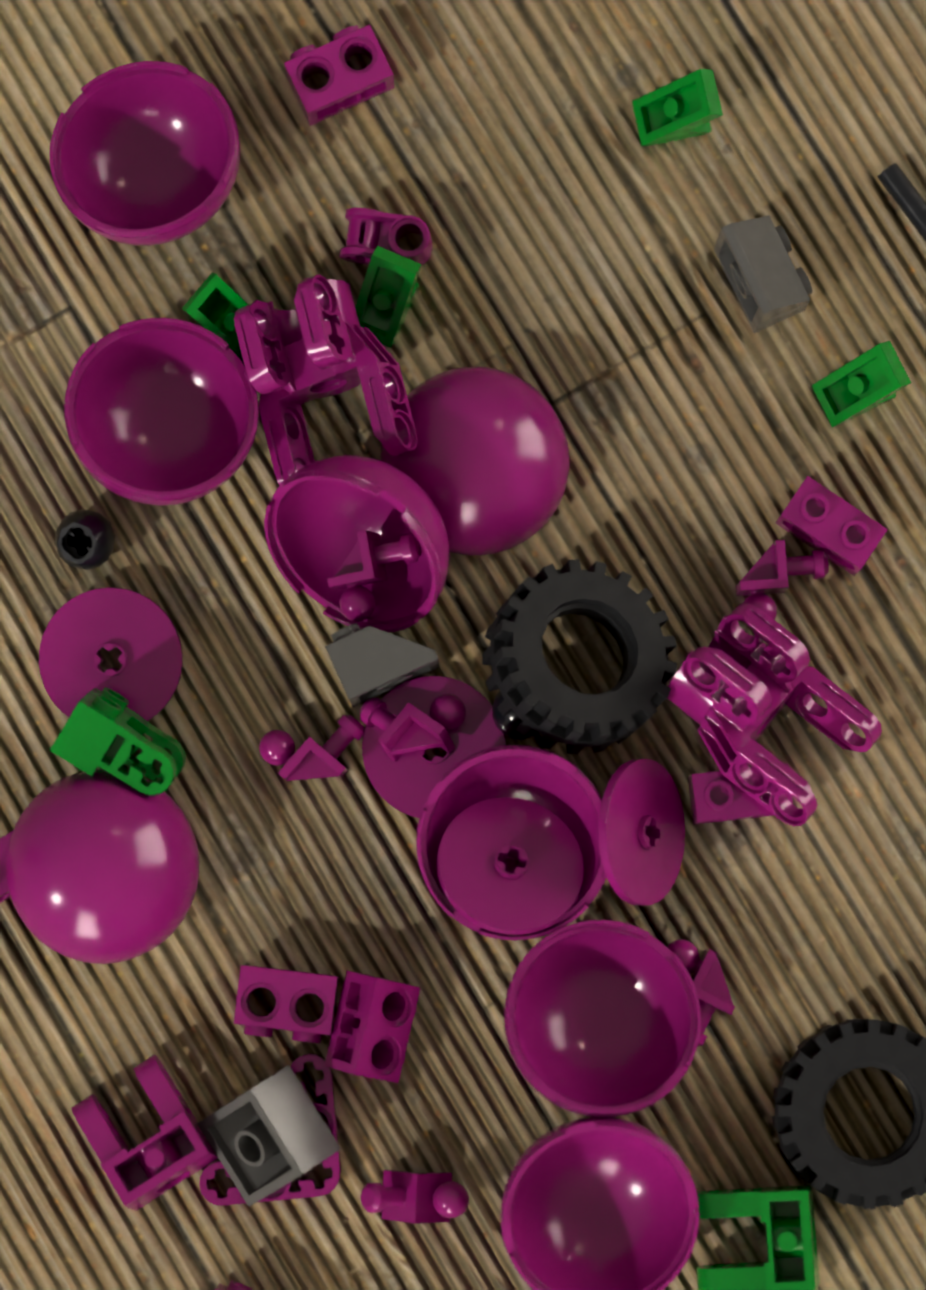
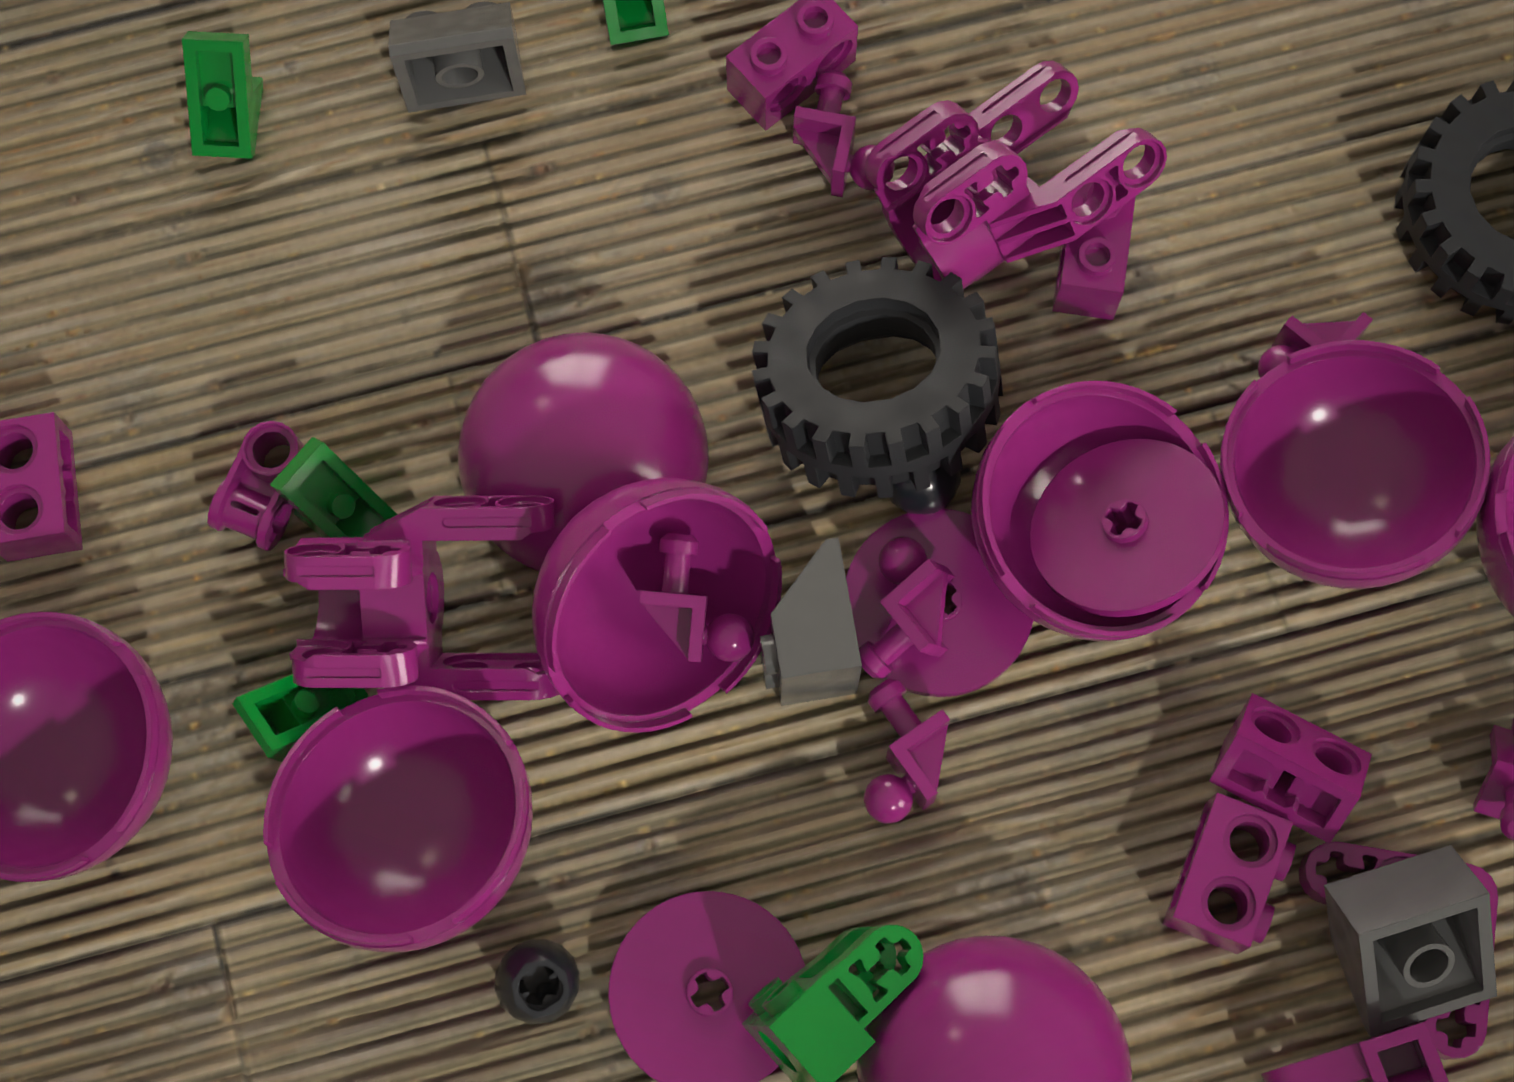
camera: 75 degrees left, 10 degrees down
(641, 832) = (1120, 360): magenta piece -> none

